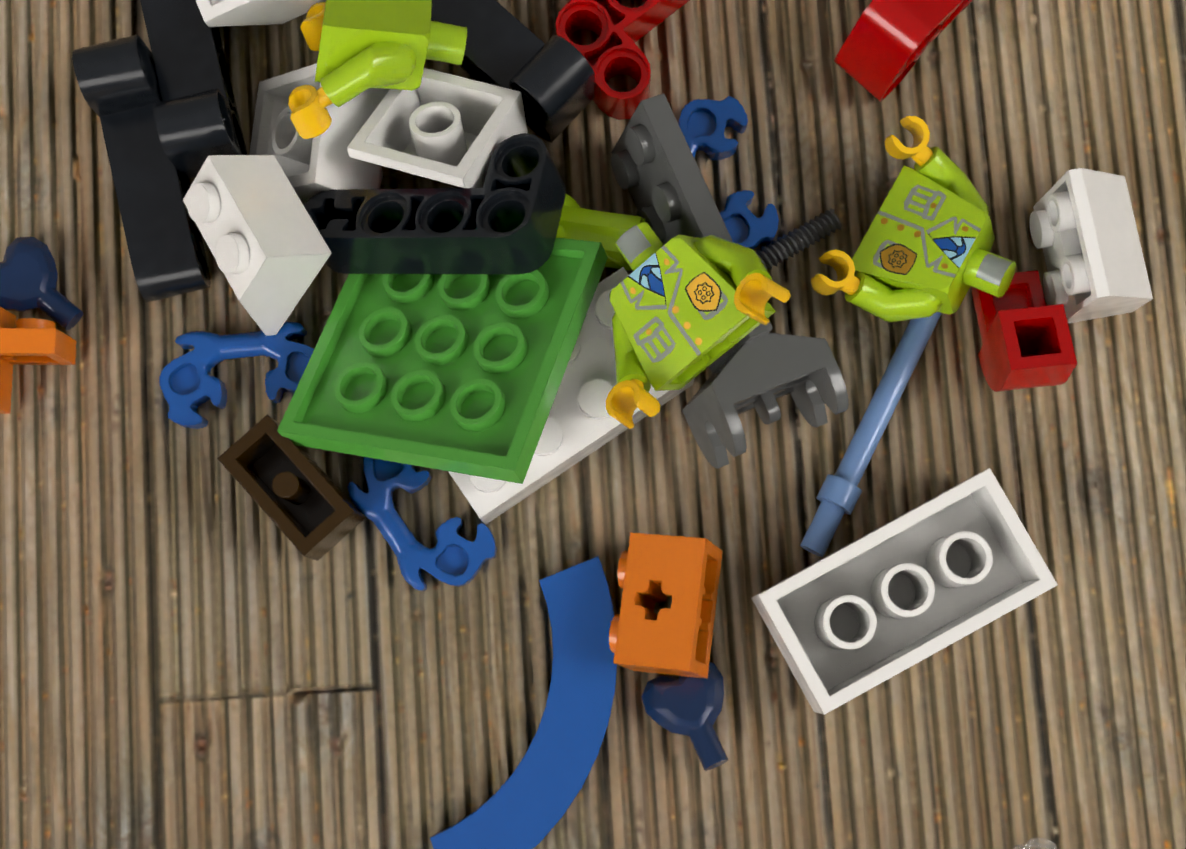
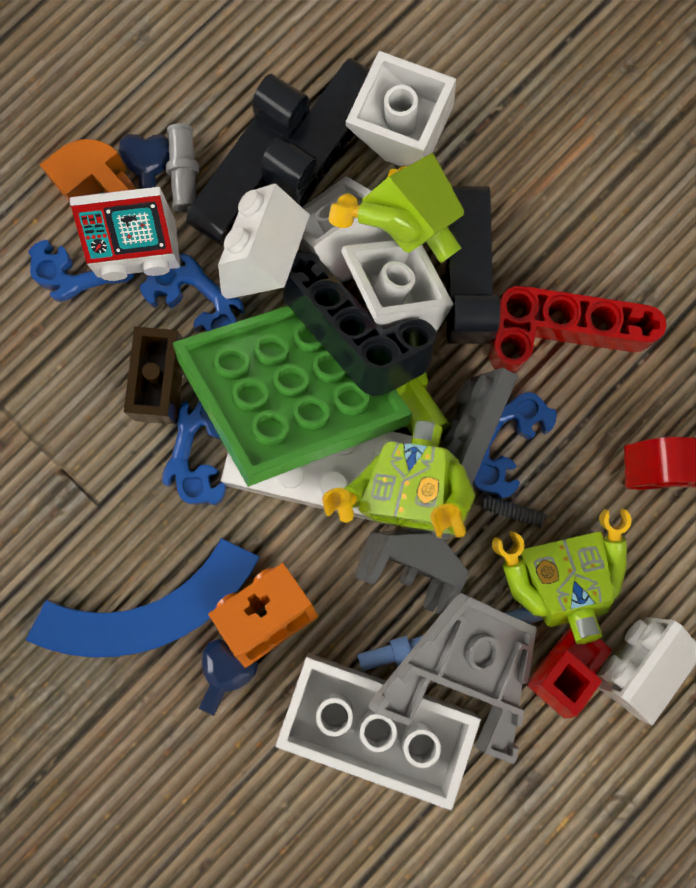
camera: 45 degrees right, 0 degrees up
(51, 503) = (50, 272): none -> blue helmet
(76, 249) = (182, 166): none -> light grey pin
(101, 373) = (127, 233): none -> slope
(913, 412) = (473, 653): none -> light grey wing

